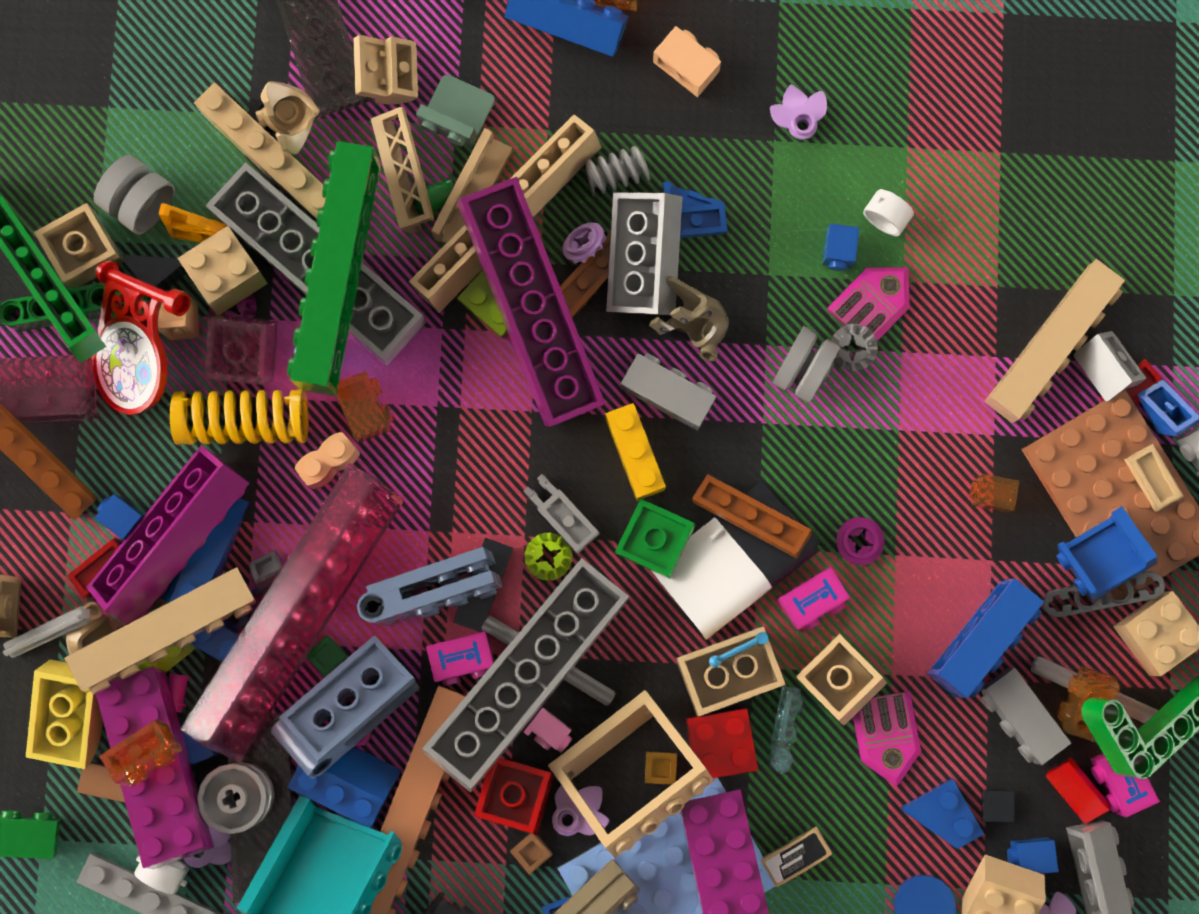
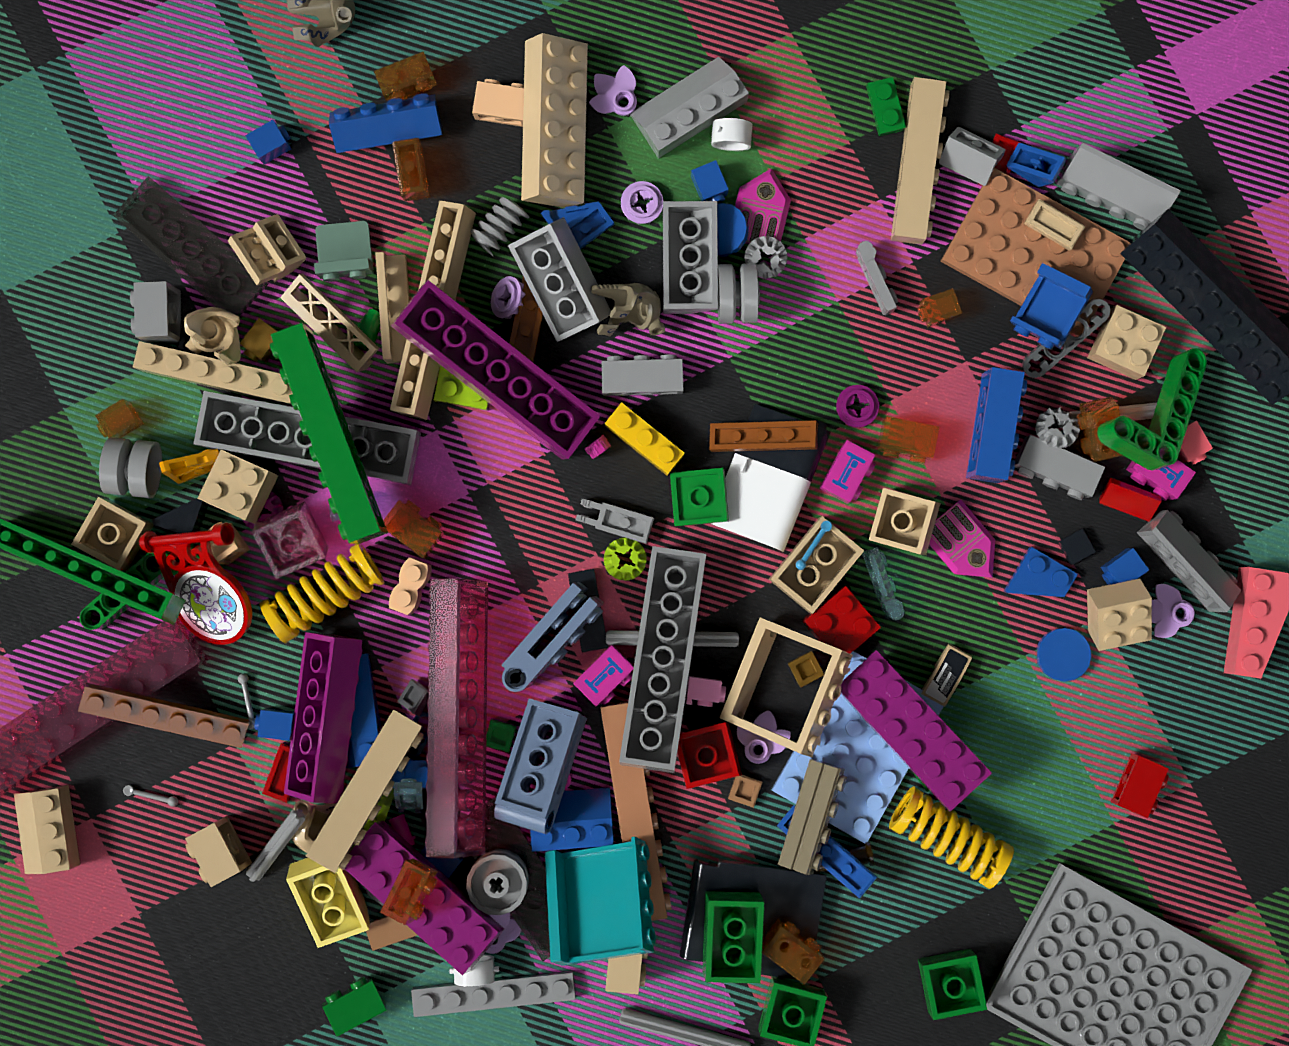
camera: 30 degrees left, 5 degrees up
(116, 456) = (243, 679): none -> light grey hinge
(152, 145) = (118, 419): none -> clear orange brick
(201, 659) = (408, 795): none -> clear light blue hinge
(247, 65) = (156, 312): none -> light grey brick
(321, 146) = (258, 341): none -> pearl gold brick
(564, 71) = (411, 169): none -> clear orange brick
(586, 433) = (597, 447): none -> dark pink axle
(726, 104) = (554, 121): none -> tan brick
(776, 221) = (647, 192): none -> lavender gear
(780, 304) = (690, 257): none -> light grey slope
(826, 297) = (731, 229): none -> blue tile
(863, 165) = (690, 106): none -> light grey slope
(891, 602) = (907, 439): none -> clear orange brick
(949, 427) = (875, 276): none -> light grey hinge
(1037, 684) = (1054, 437): none -> light grey gear
(1052, 272) = (885, 106): none -> green plate
(1173, 773) = (1194, 444): none -> coral brick

